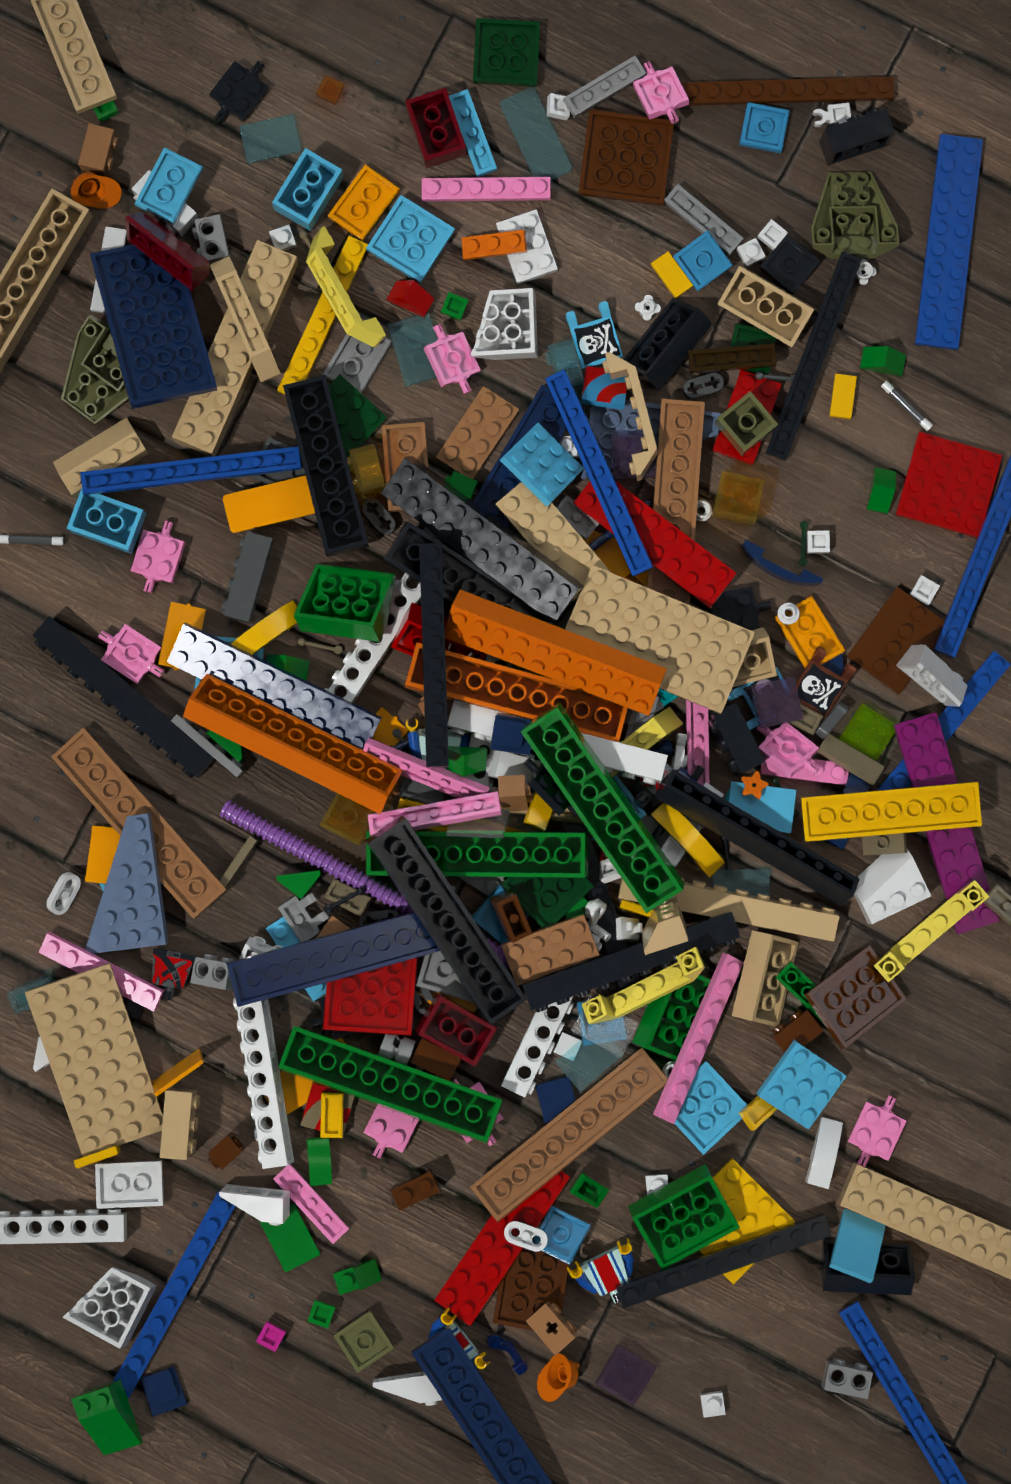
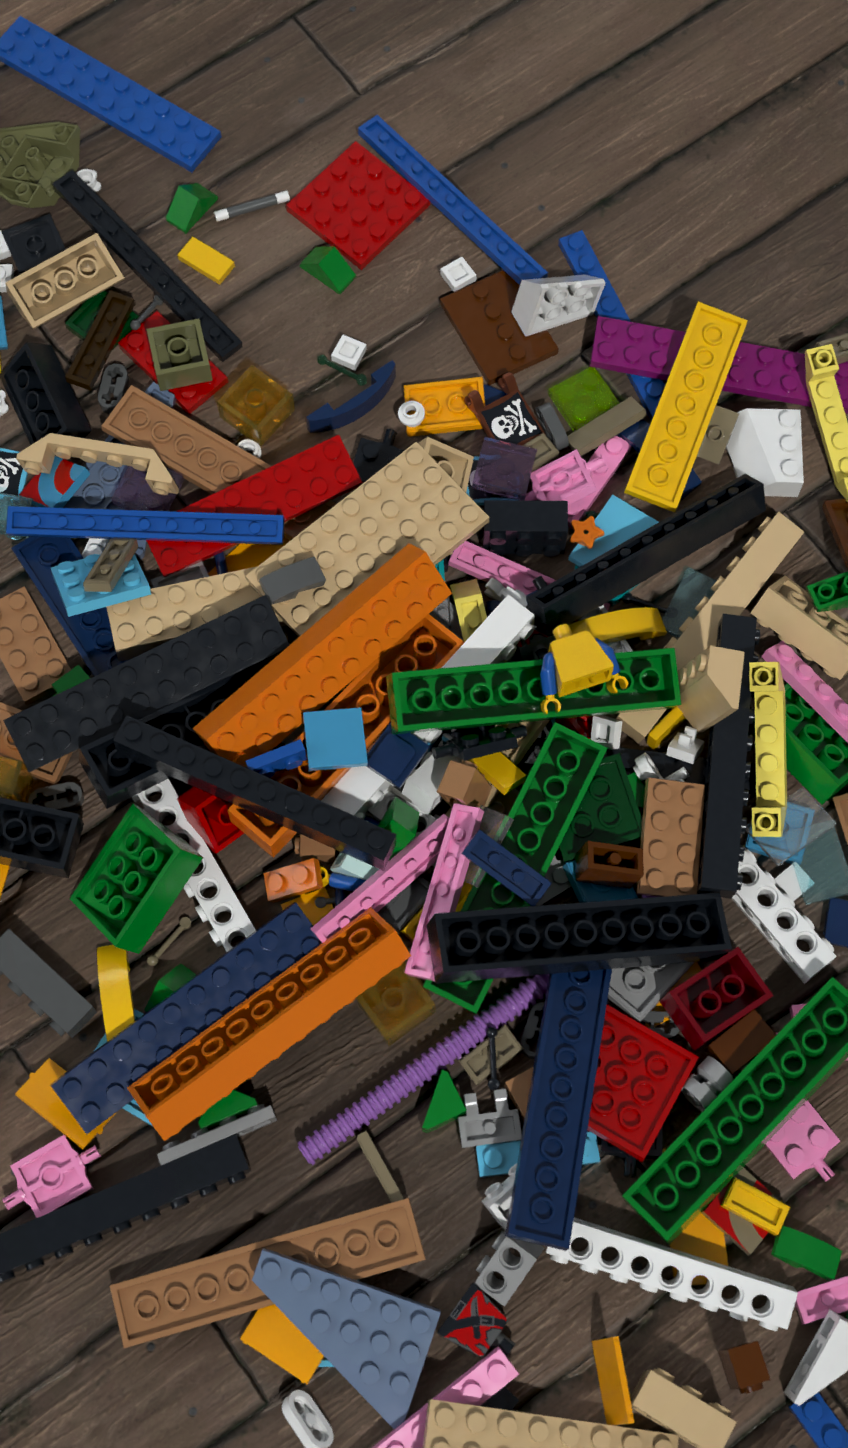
camera: 60 degrees left, 15 degrees down
(400, 707) = (293, 880): none -> orange plate
(455, 652) = (287, 756): none -> blue plate
(466, 849) = (506, 868): none -> dark blue plate
(500, 689) = (335, 739): none -> dark azure tile
(554, 466) = (110, 565): none -> dark tan tile
(601, 601) = (291, 579): none -> dark grey slope
(628, 829) = (577, 664): none -> yellow torso

